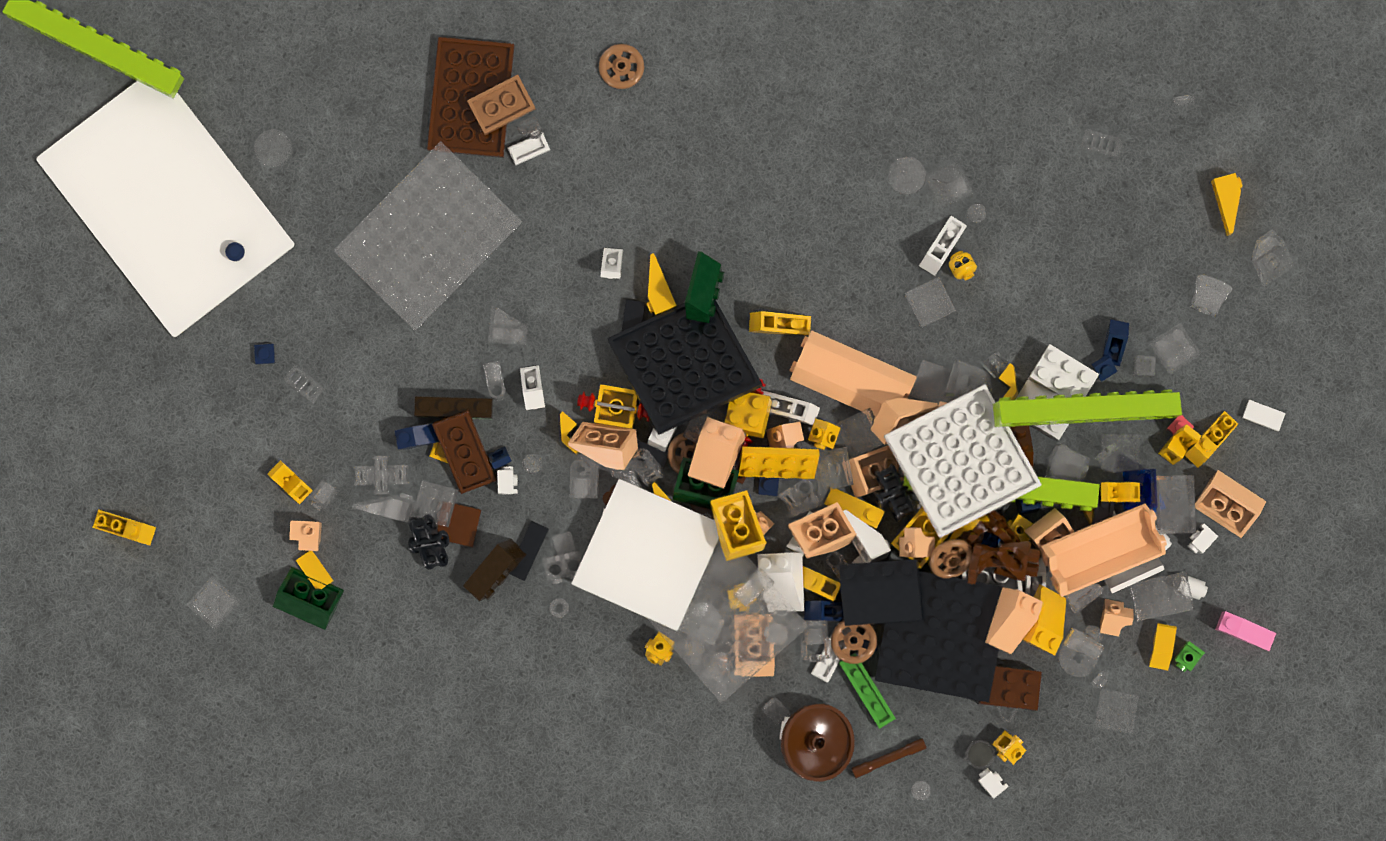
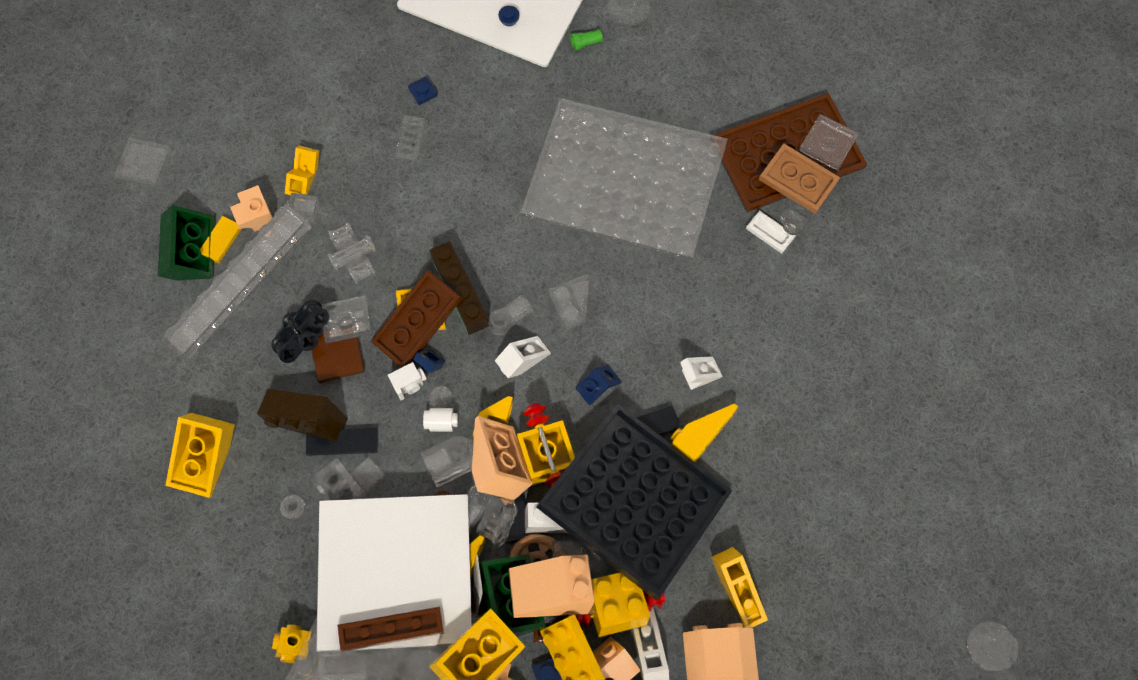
camera: 65 degrees right, 15 degrees down
(124, 527) = (183, 49): yellow slope -> none
(286, 200) = (583, 39): none -> bright green pin
(364, 570) = (236, 283): none -> clear brick
(392, 507) = (318, 275): clear slope -> none
(416, 436) = (406, 262): dark blue slope -> none
(481, 63) = (828, 142): none -> clear tile
(485, 657) = (198, 453): none -> yellow slope
(549, 471) = (440, 419): none -> white brick
(581, 343) = (597, 383): none -> dark blue bracket
(634, 76) = (908, 296): medium nougat plate -> none
(685, 502) = (477, 586): none -> white sticker
(688, 574) = (390, 629): none -> reddish brown tile
(703, 288) = (730, 477): dark green slope -> none

